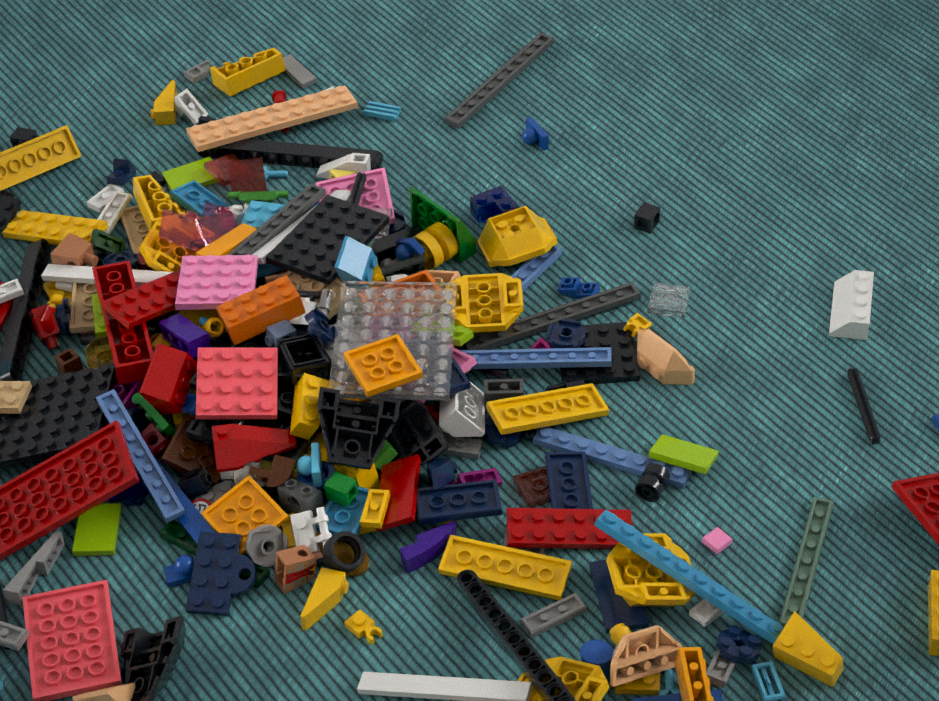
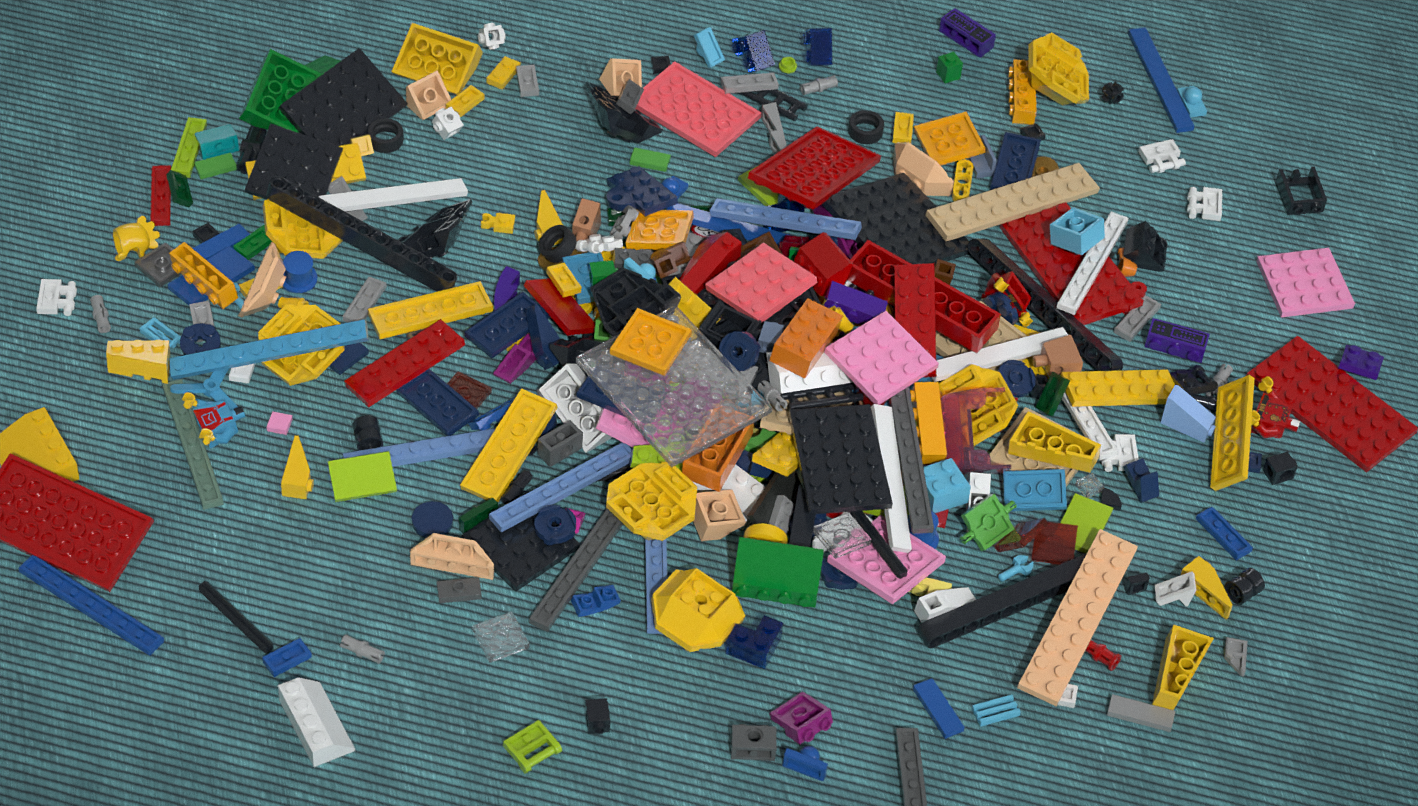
camera: 135 degrees right, 5 degrees up
(38, 193) = (1188, 415): none -> light blue slope
(111, 130) = (1224, 533): none -> blue tile
(123, 668) = (630, 96): none -> dark grey plate
(140, 91) = (1244, 586): none -> black wheel
(164, 609) = (650, 159): none -> bright green tile
(355, 261) = (780, 432): slope -> none
(407, 248) = (772, 513): blue tile -> none
(416, 128) = (938, 708): none -> blue tile
(432, 629) = (439, 231): none -> black wedge
(511, 155) = (802, 717): none -> magenta plate
(525, 449) = (483, 422): none -> blue plate
(557, 158) = (745, 749): none -> dark grey brick
(615, 380) = (477, 515): none -> dark green plate
(636, 323) = (504, 583): yellow plate -> none
(651, 401) = (432, 518): none -> dark blue tile
(680, 343) = (459, 590): none -> dark grey plate
(707, 225) = (528, 741): none -> lime plate
(738, 481) = (296, 477): none -> yellow slope
(760, 601) = (209, 388): none -> dark azure piece
(774, 330) = (362, 648): none -> light grey pin
(777, 557) = (214, 419): none -> torso
(843, 356) = (287, 657): none -> blue plate

